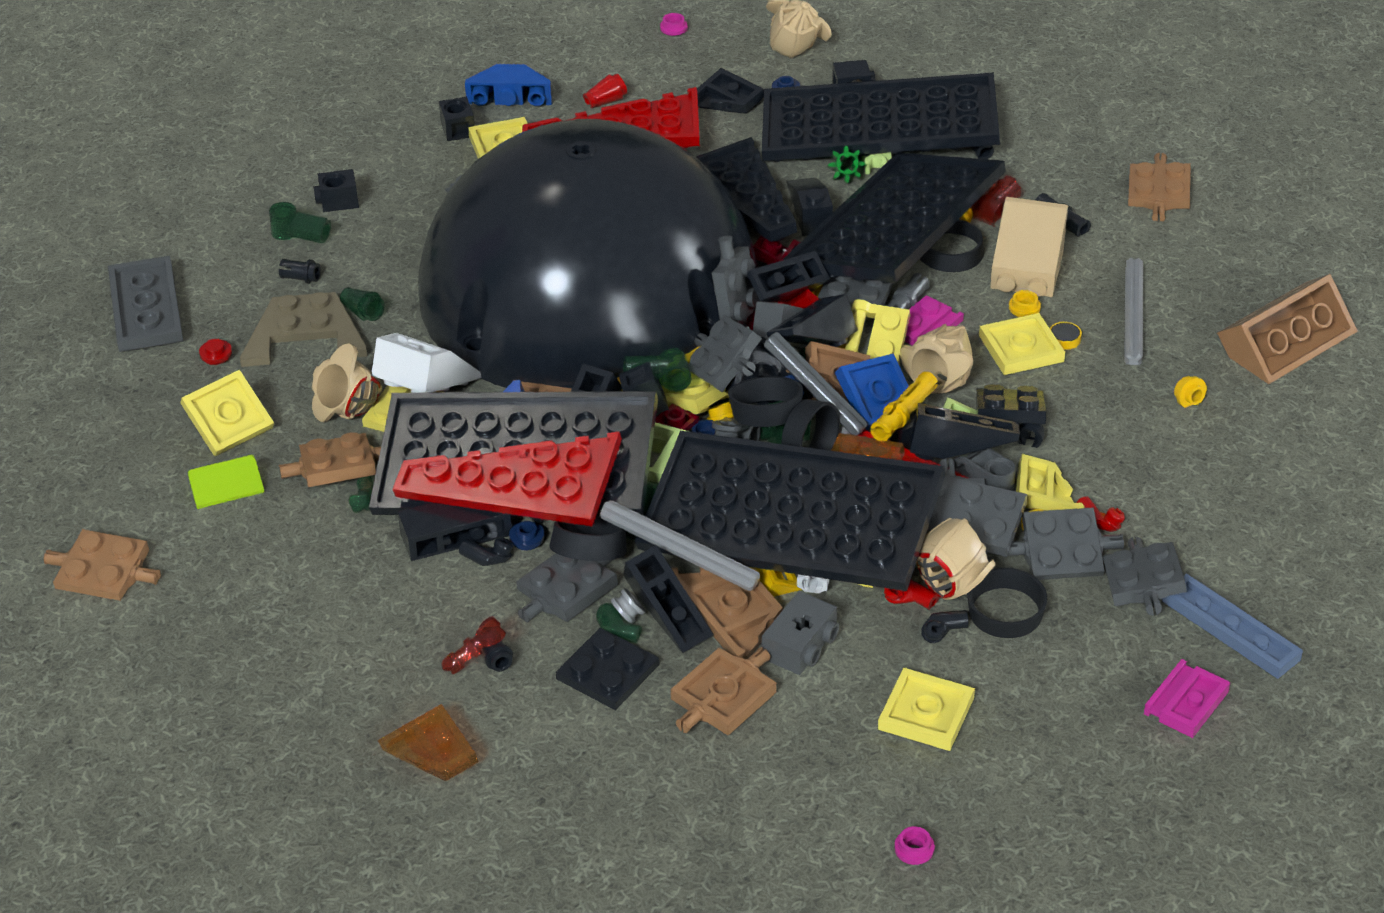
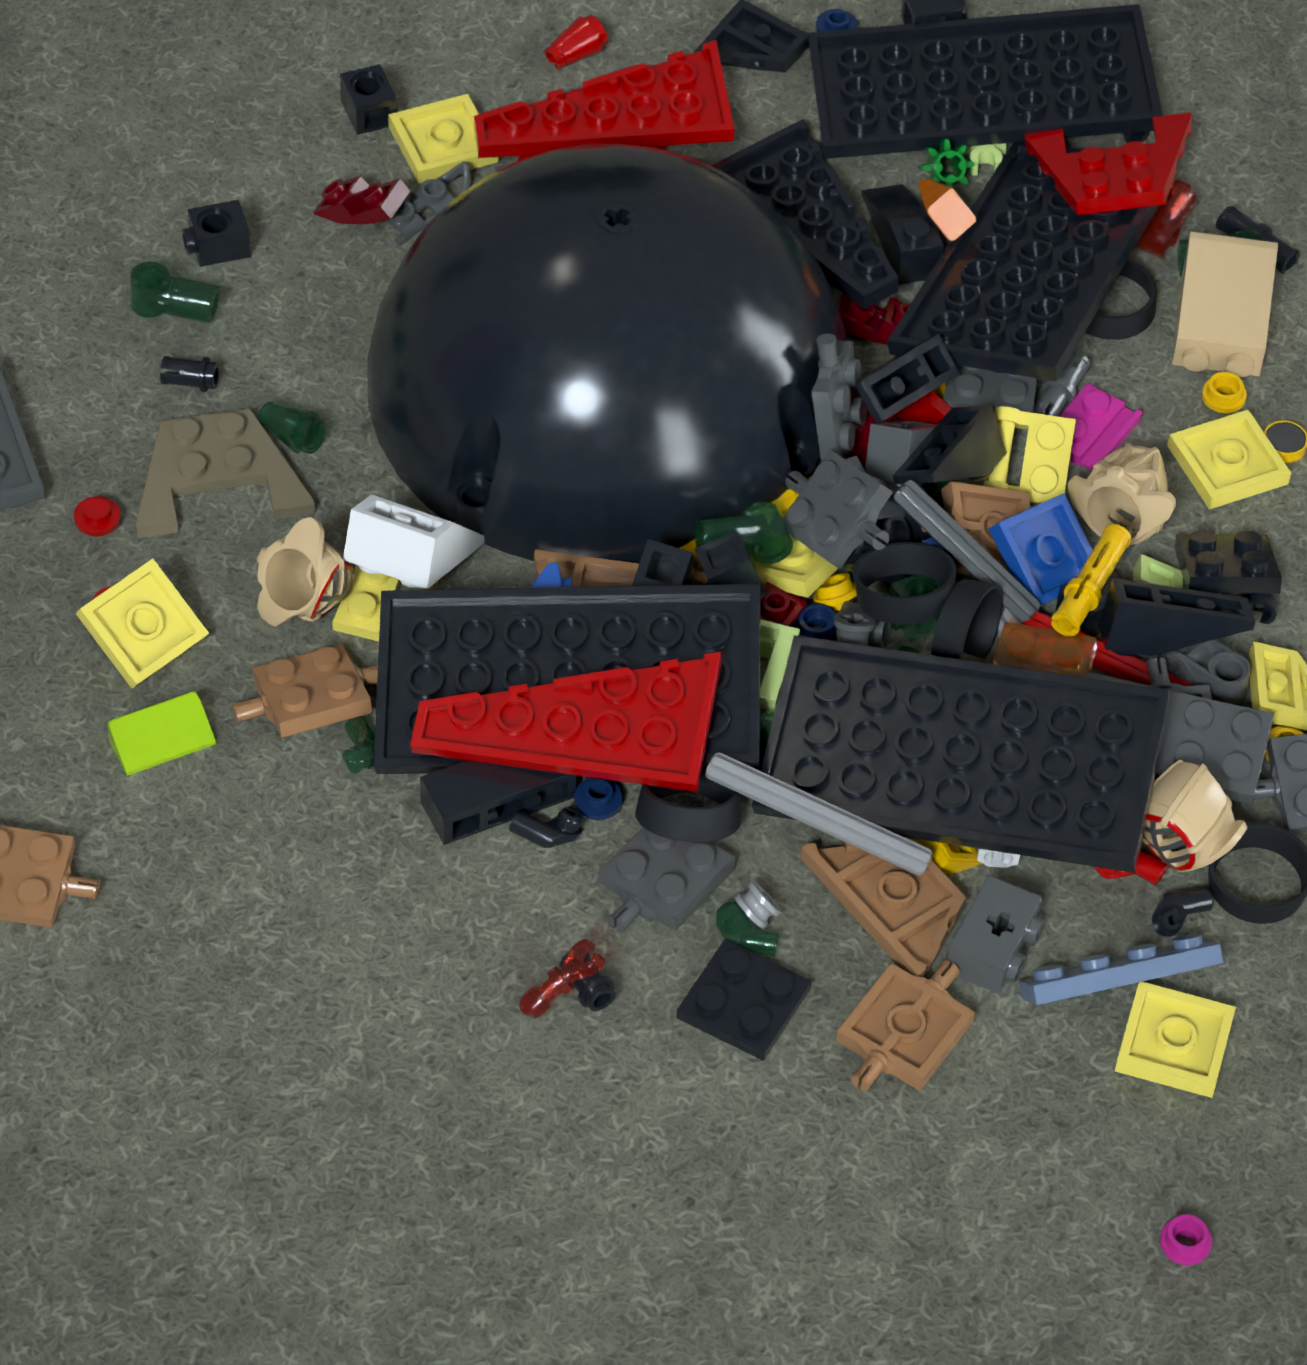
camera: 10 degrees left, 10 degrees up
(431, 744) = (531, 1129): clear orange wing -> none
(438, 174) = (359, 203): none -> dark red slope
(509, 86) = (434, 34): blue slope -> none
(666, 599) = (810, 894): black slope -> none
(839, 185) = (945, 208): none -> slope
(906, 656) = (1101, 973): none -> sand blue plate
(961, 168) = (1117, 176): none -> red wing

